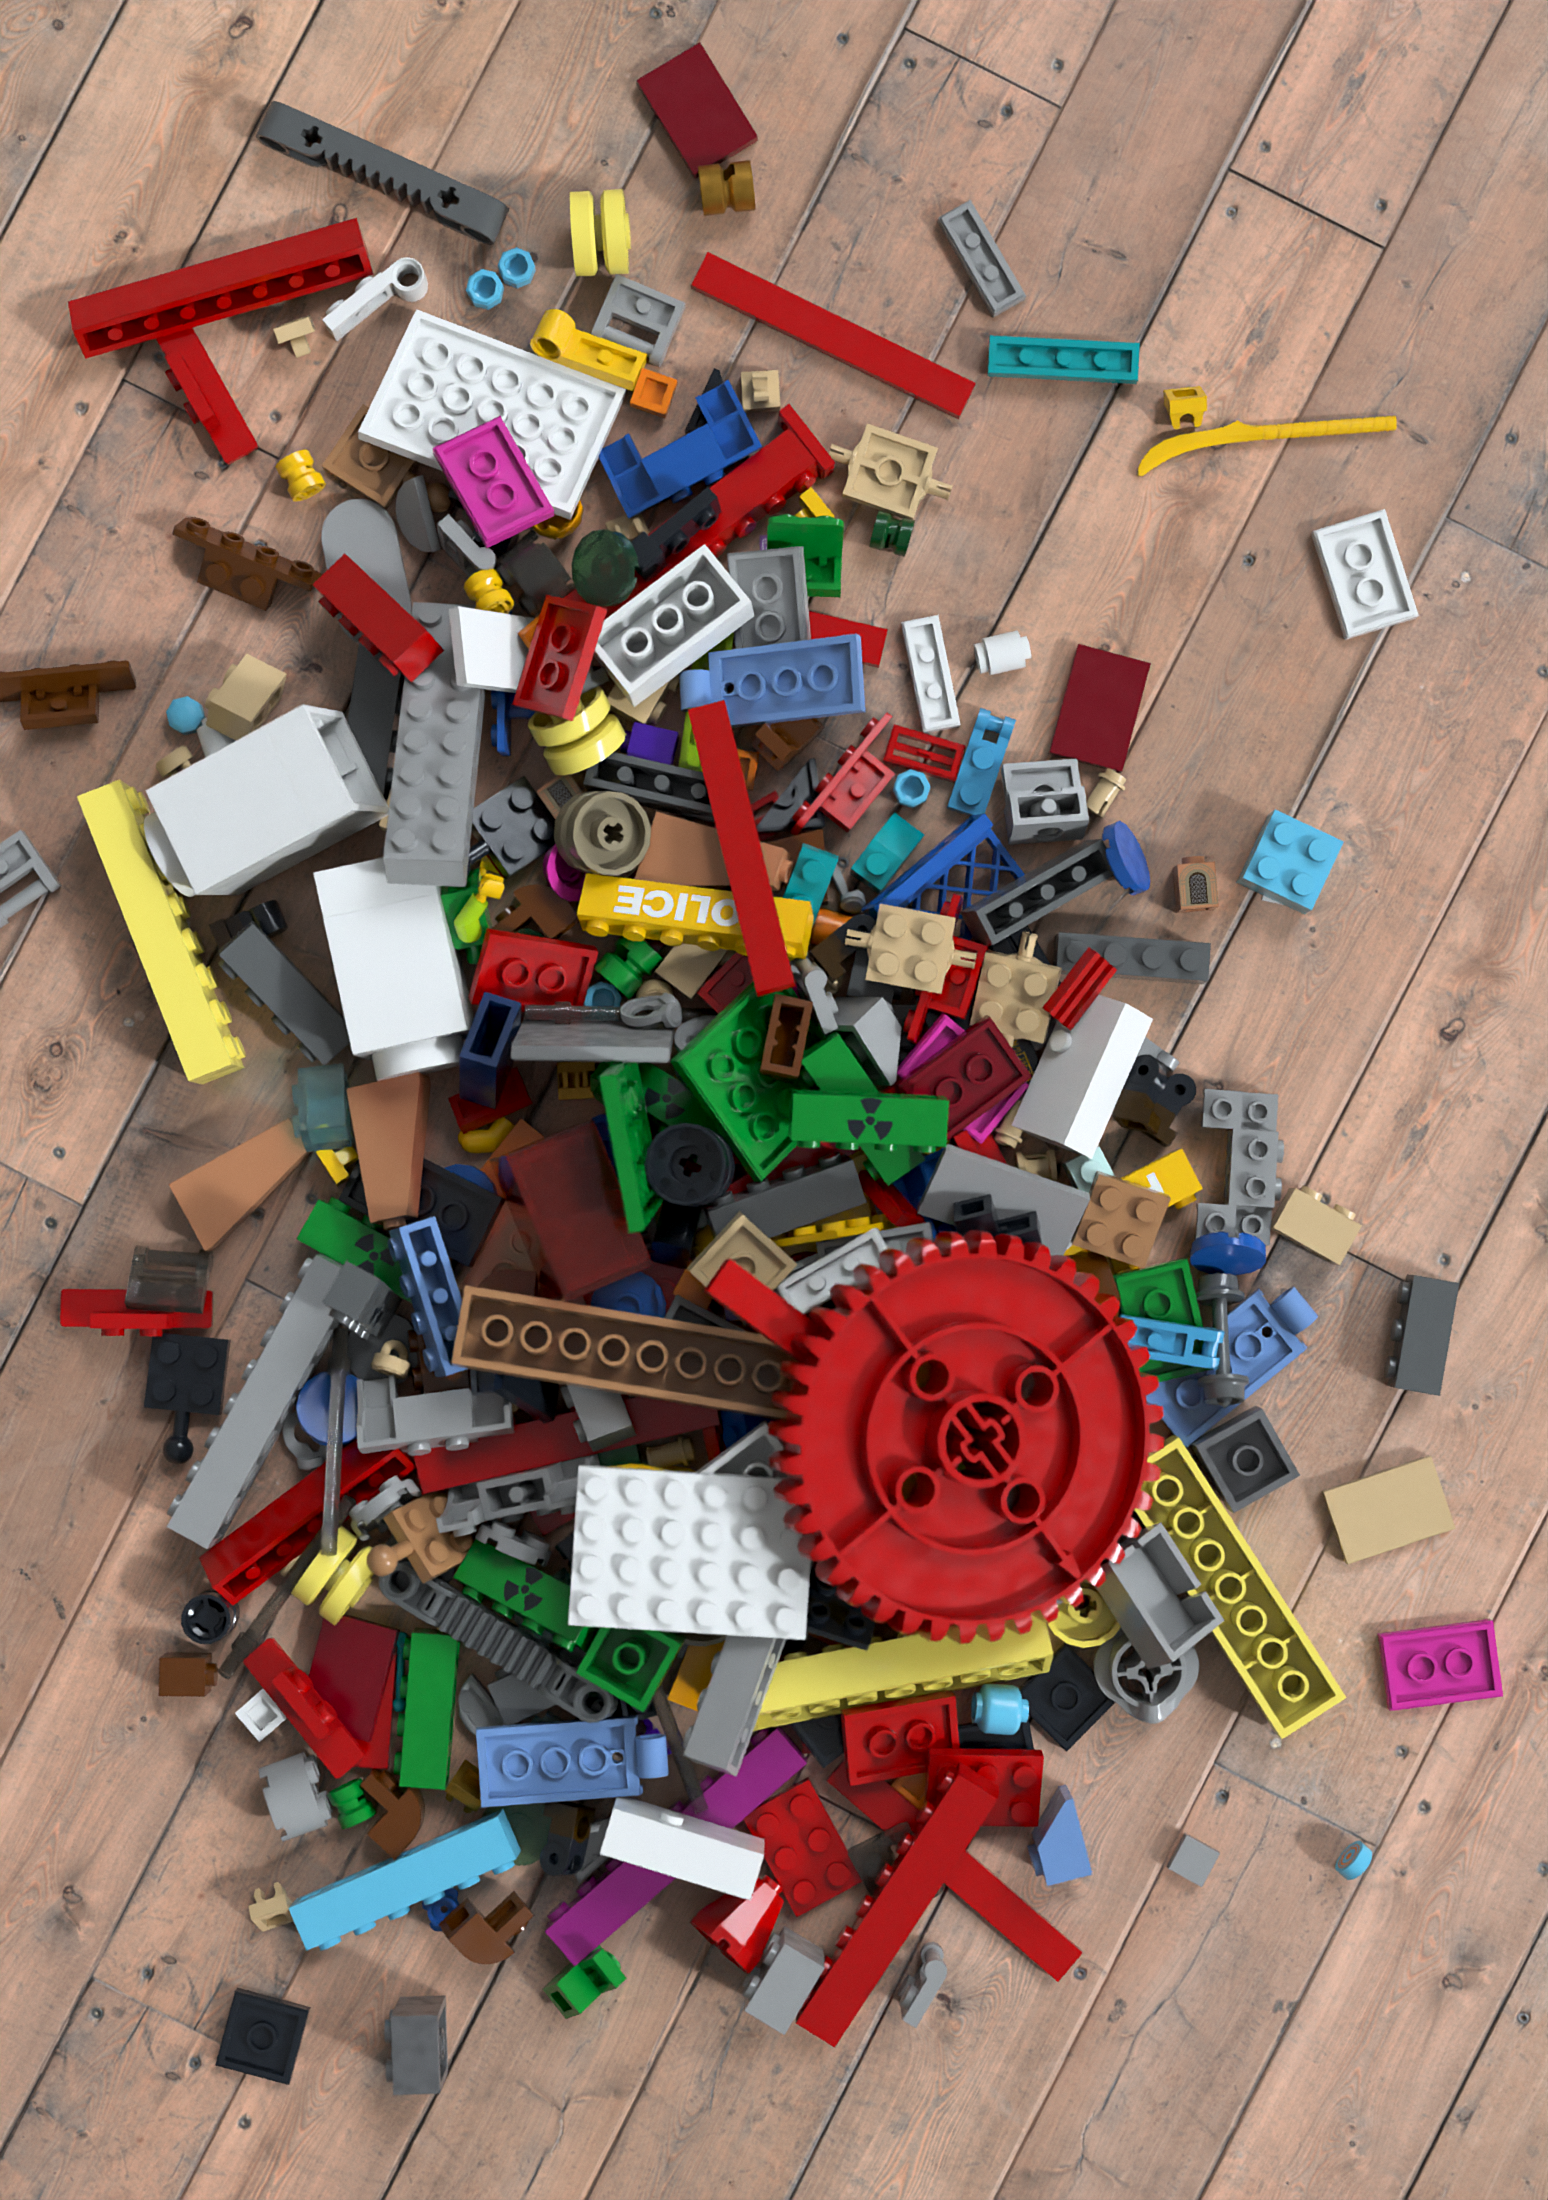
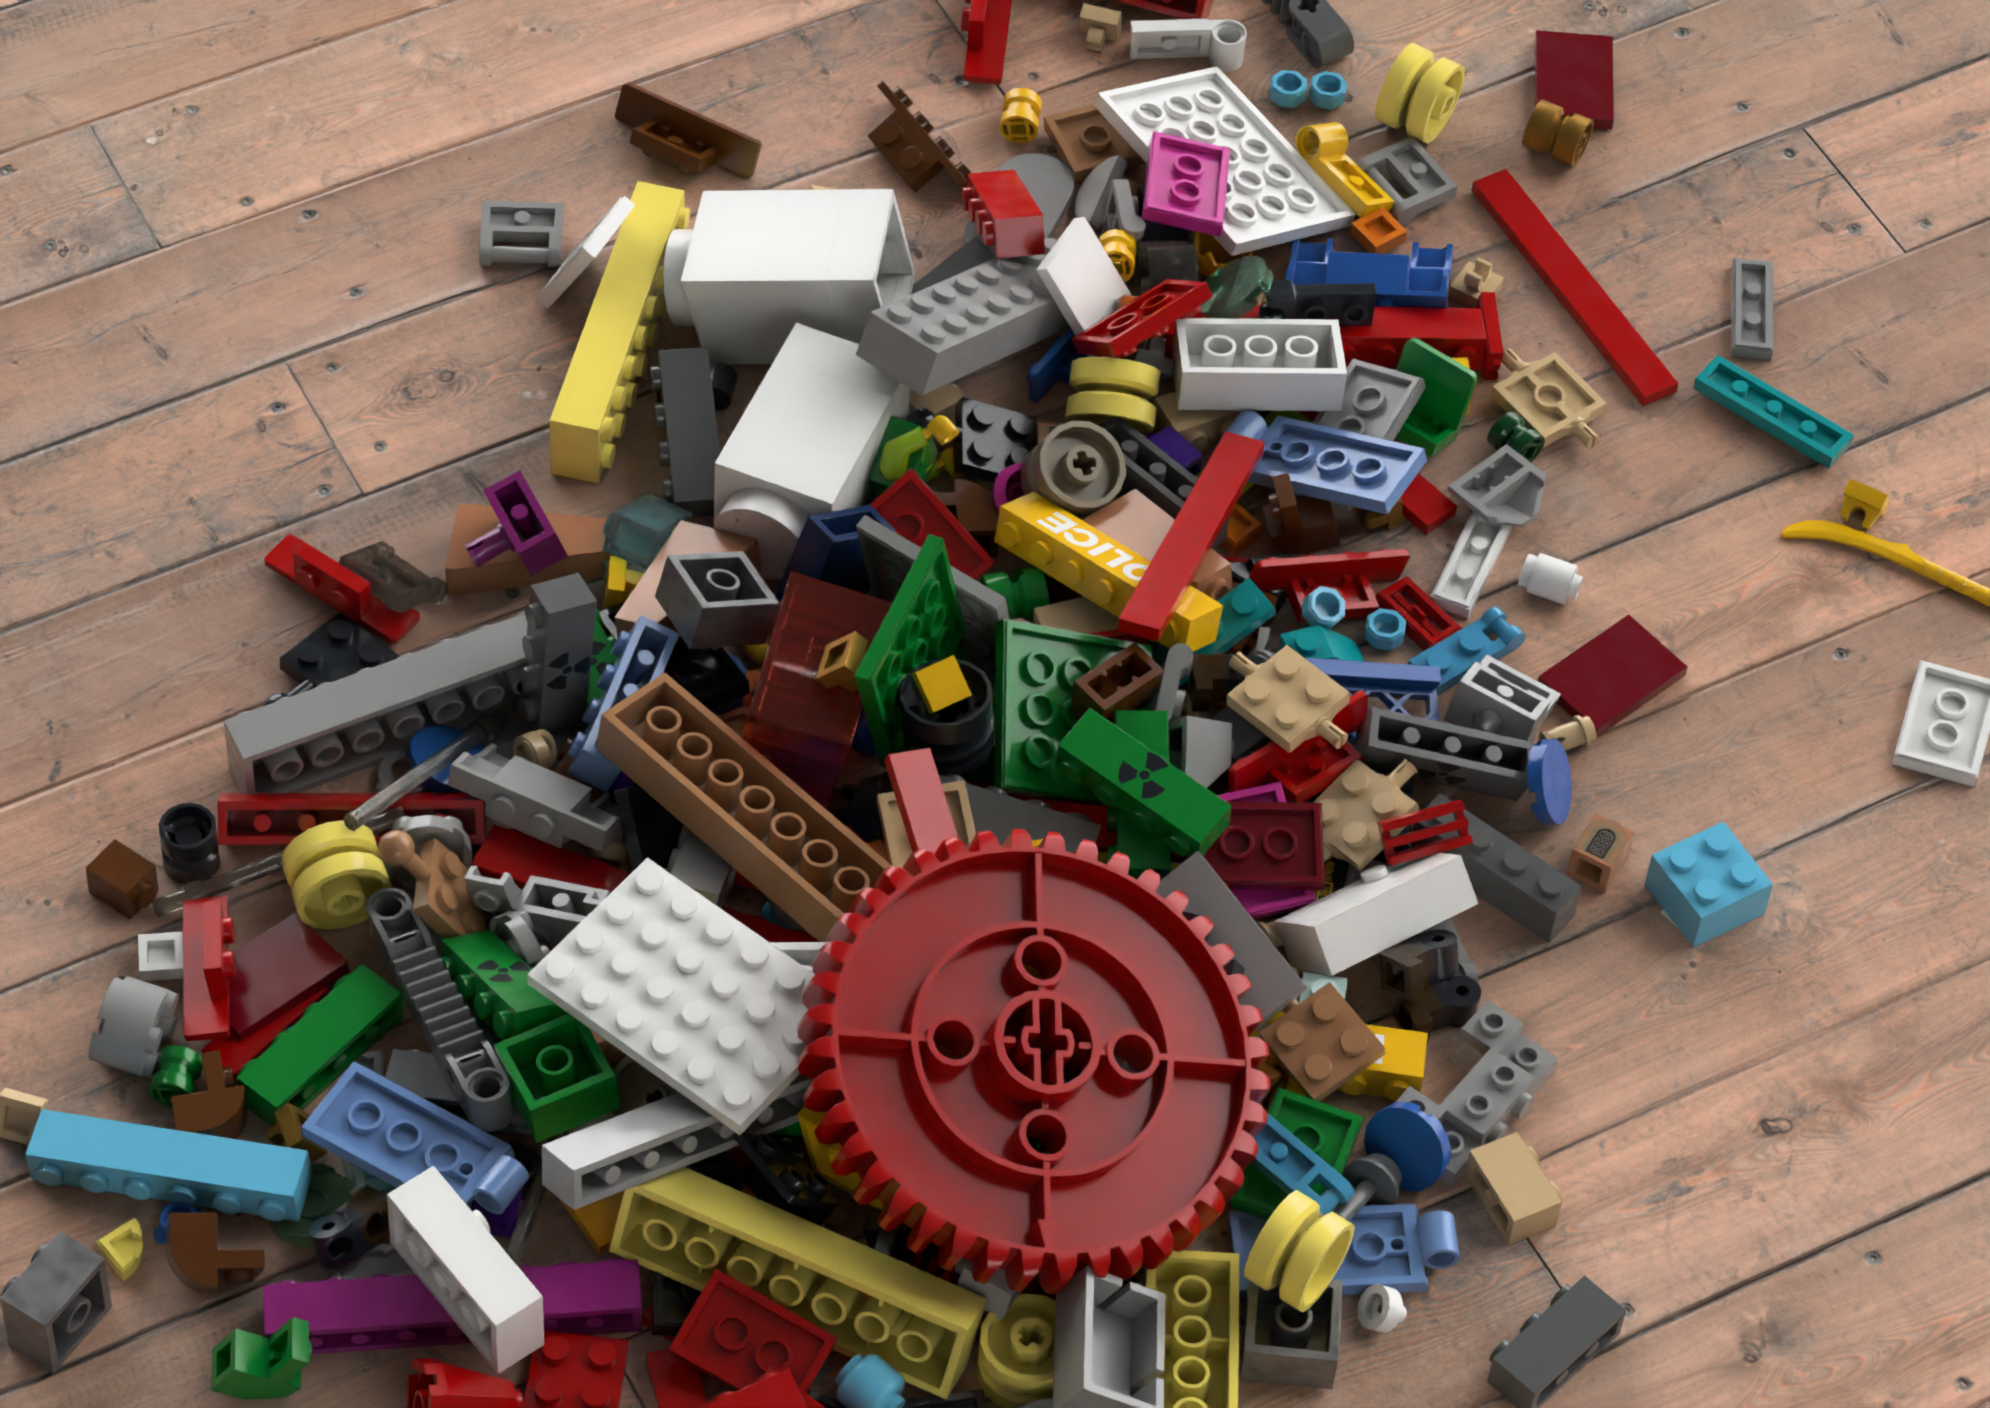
camera: 30 degrees right, 35 degrees down
(84, 884) = (585, 252): none -> white tile
(240, 1191) = (520, 528): none -> magenta brick
(420, 1951) = (123, 1248): none -> light yellow tile
(442, 1171) = (716, 600): none -> flat silver brick
(602, 1211) = (841, 661): none -> pearl gold tile
(676, 1157) = (941, 684): none -> yellow tile
(865, 819) = (1323, 607): none -> medium azure tile
(914, 594) = (1502, 488): none -> light grey slope
(1235, 1433) = (1299, 1251): none -> light yellow wheel
(1288, 1390) = (1381, 1308): none -> white tile

